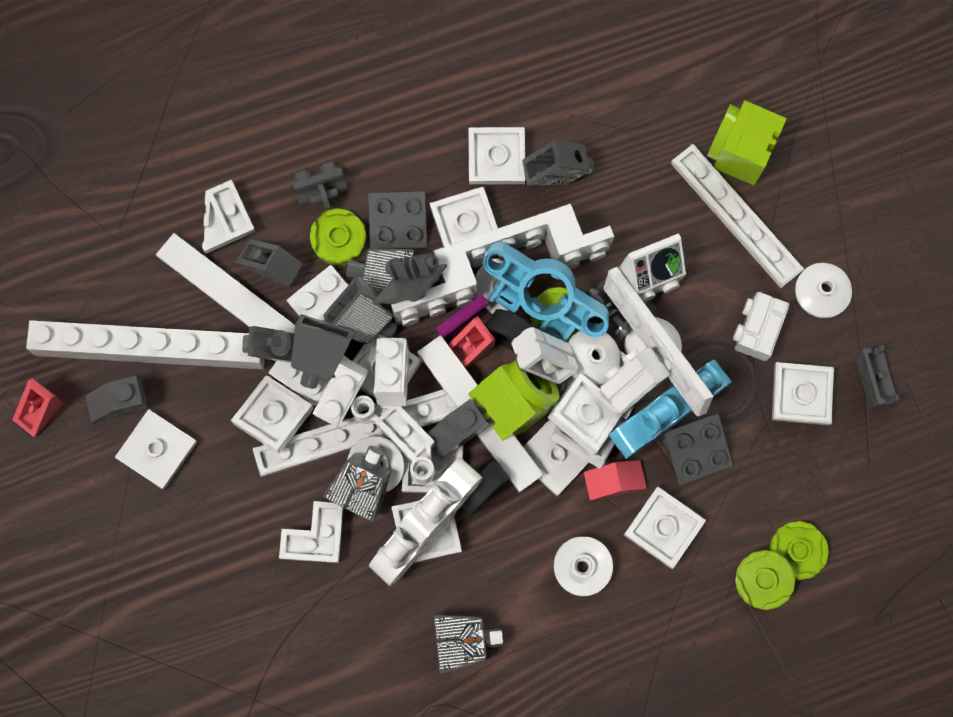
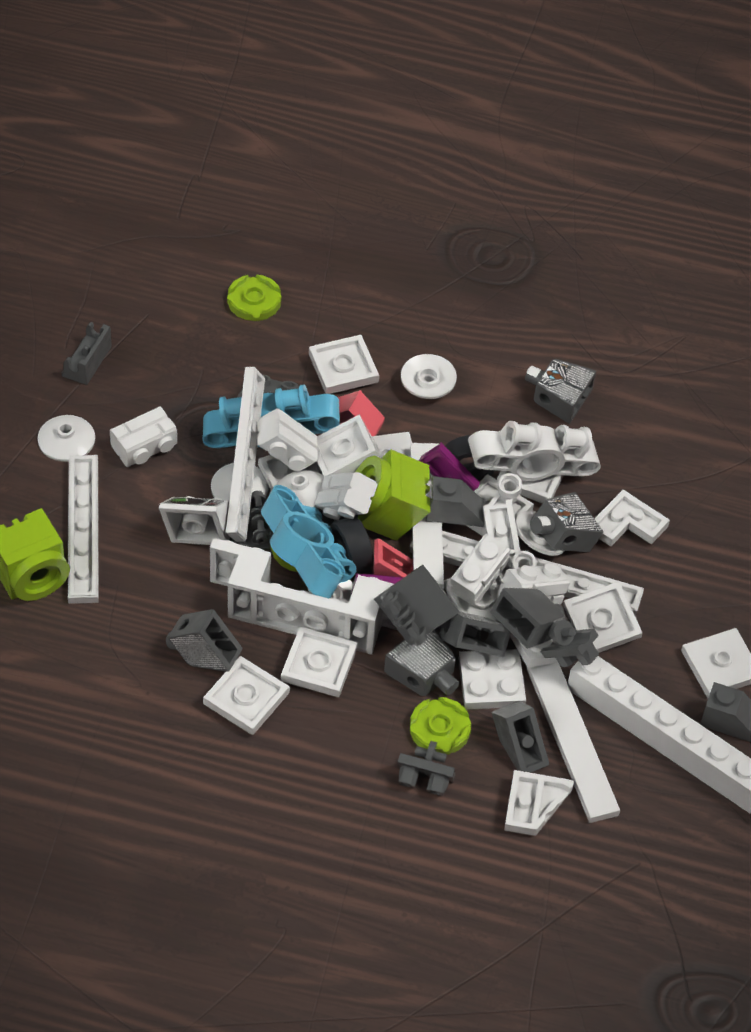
camera: 145 degrees left, 25 degrees down
(397, 220) = (377, 700): dark grey hinge -> none
(489, 455) = (445, 464): none -> magenta tile
(765, 579) = (297, 292): lime tile -> none
(802, 393) = (155, 379): white plate -> none

